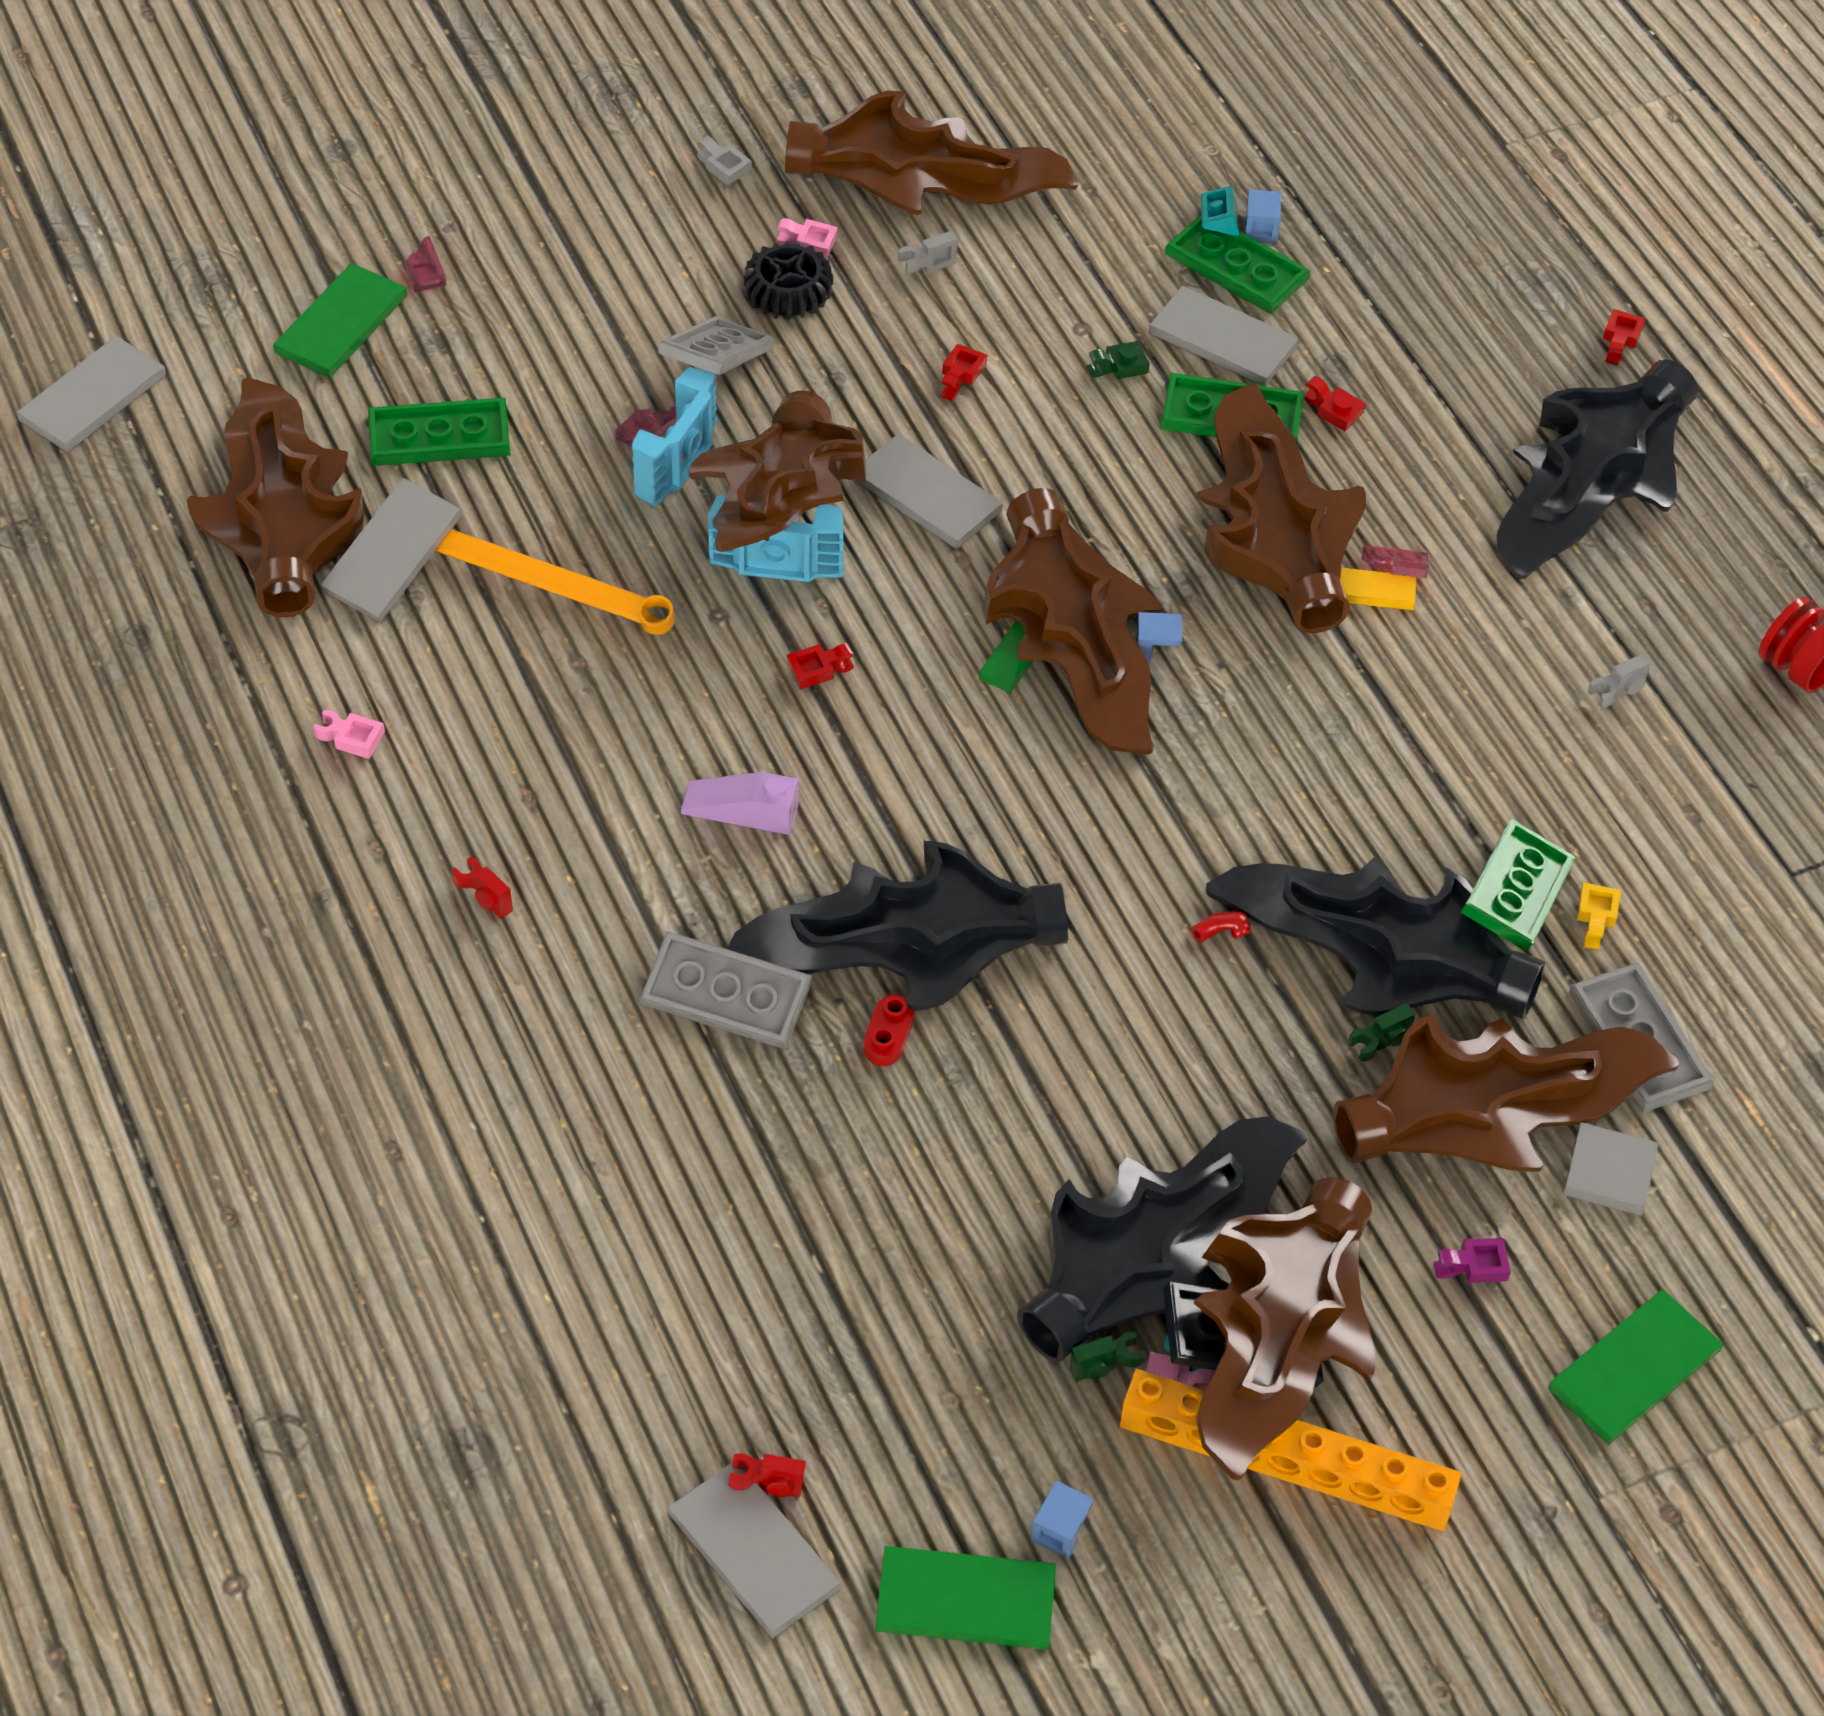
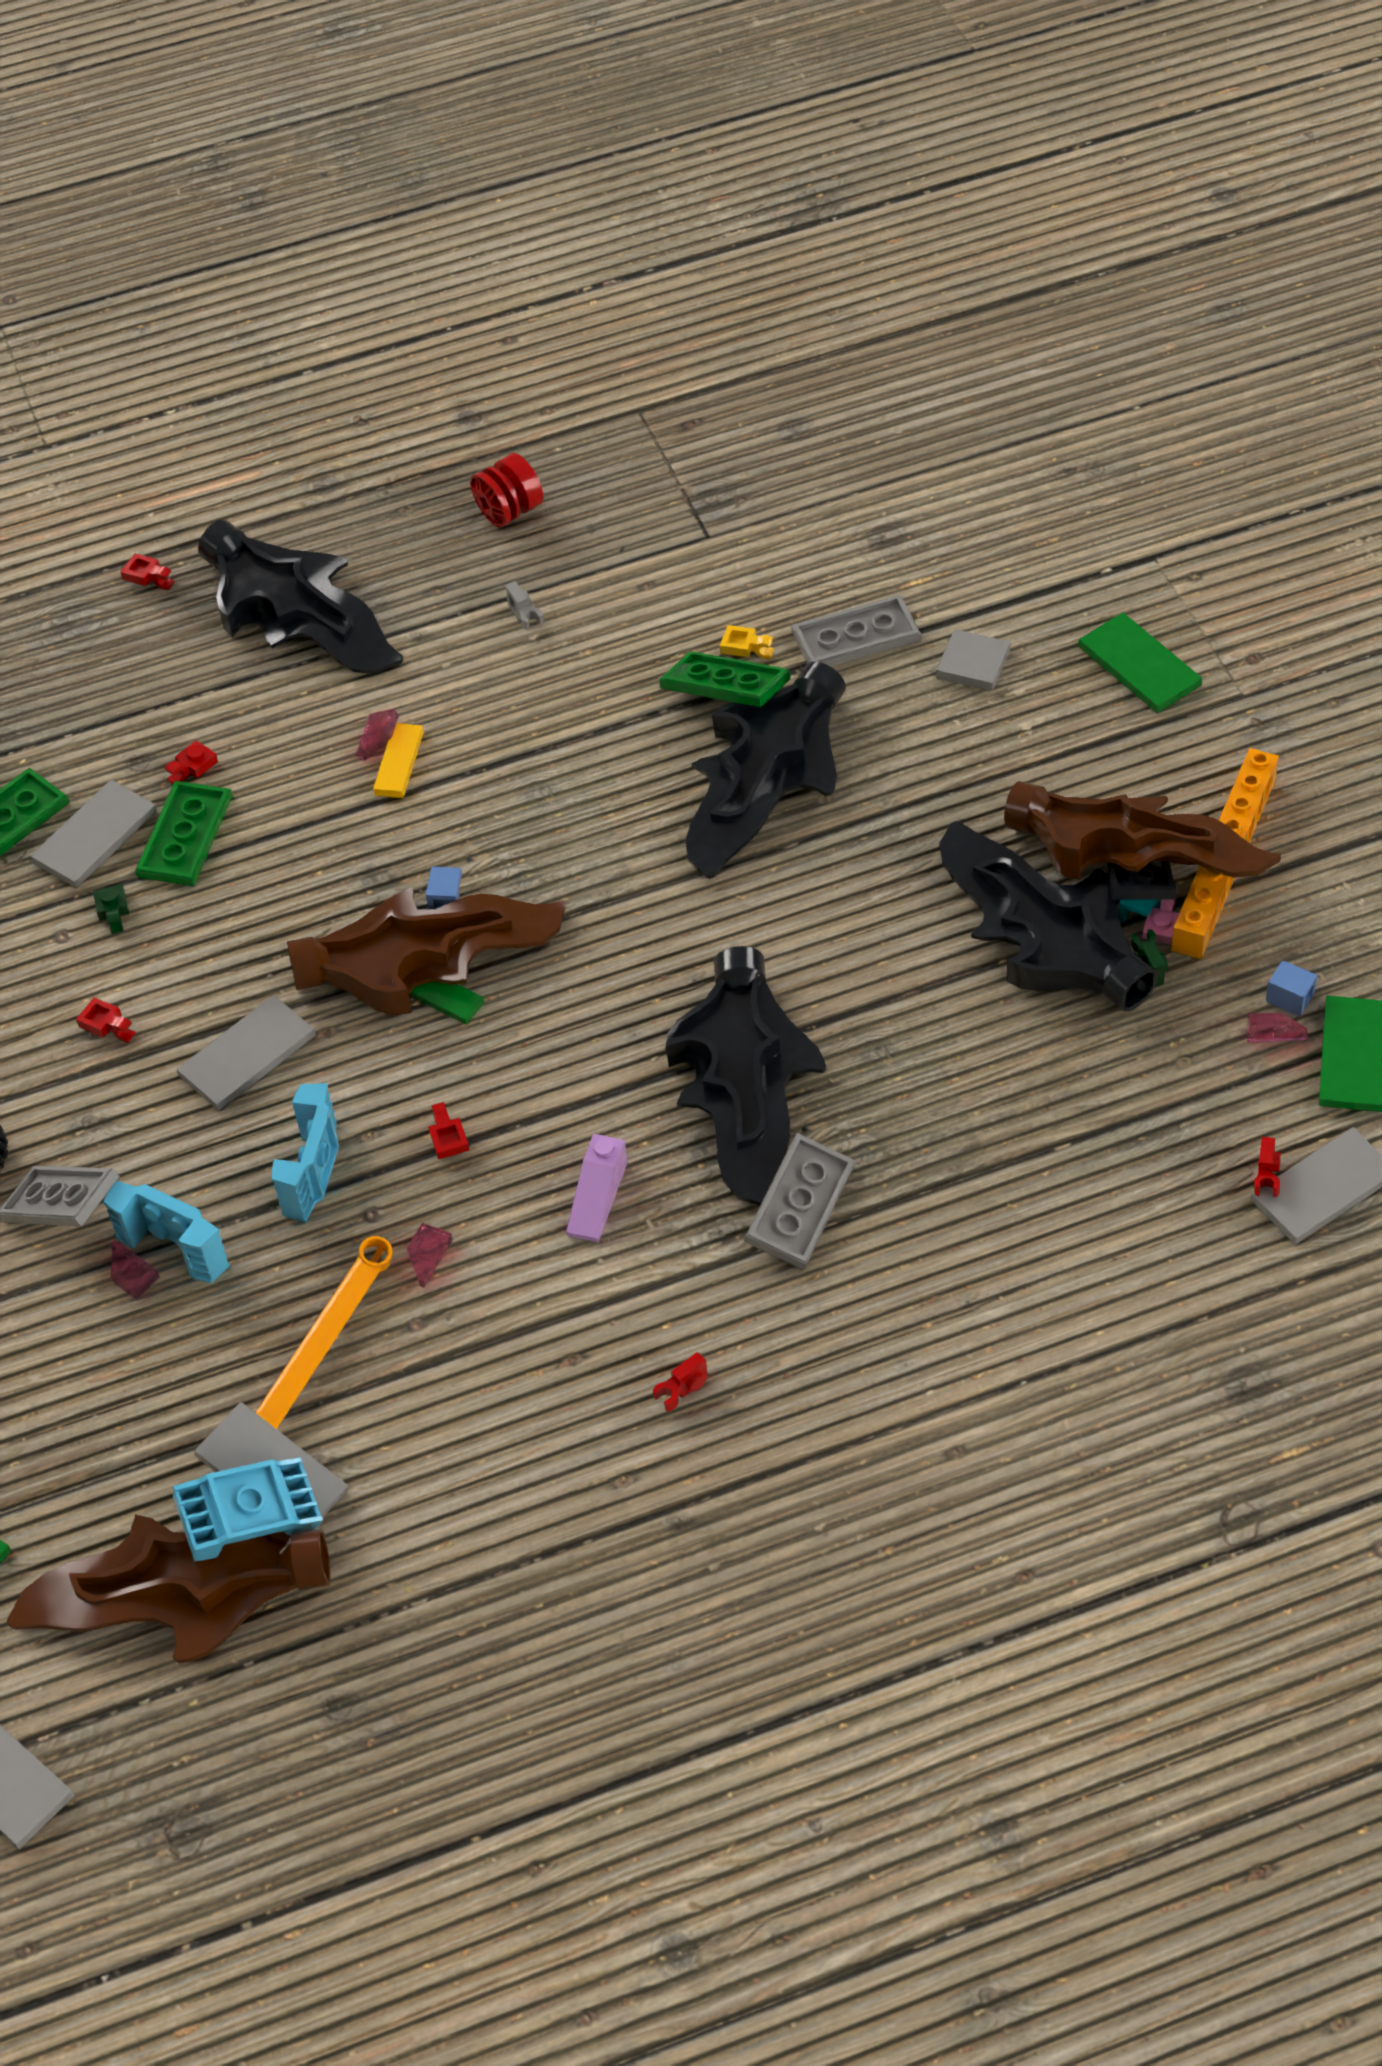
camera: 80 degrees left, 0 degrees up
(327, 516) = (245, 1505): none -> medium azure plate
(354, 735) = (492, 1497): bright pink plate -> none
(438, 431) = (106, 1447): green tile -> none
(664, 661) = (427, 1250): none -> clear pink tile
(782, 471) = (249, 1123): reddish brown piece -> none
(888, 1026) = (838, 1091): red plate -> none
(996, 1500) = (1274, 1027): none -> clear pink tile
(1221, 921) = (741, 866): red arm -> none
(1281, 524) = (328, 794): reddish brown piece -> none
(1386, 1031) = (852, 771): dark green plate -> none
(1480, 1258) = (1059, 735): magenta plate -> none
(1493, 1091) = (919, 724): reddish brown piece -> none

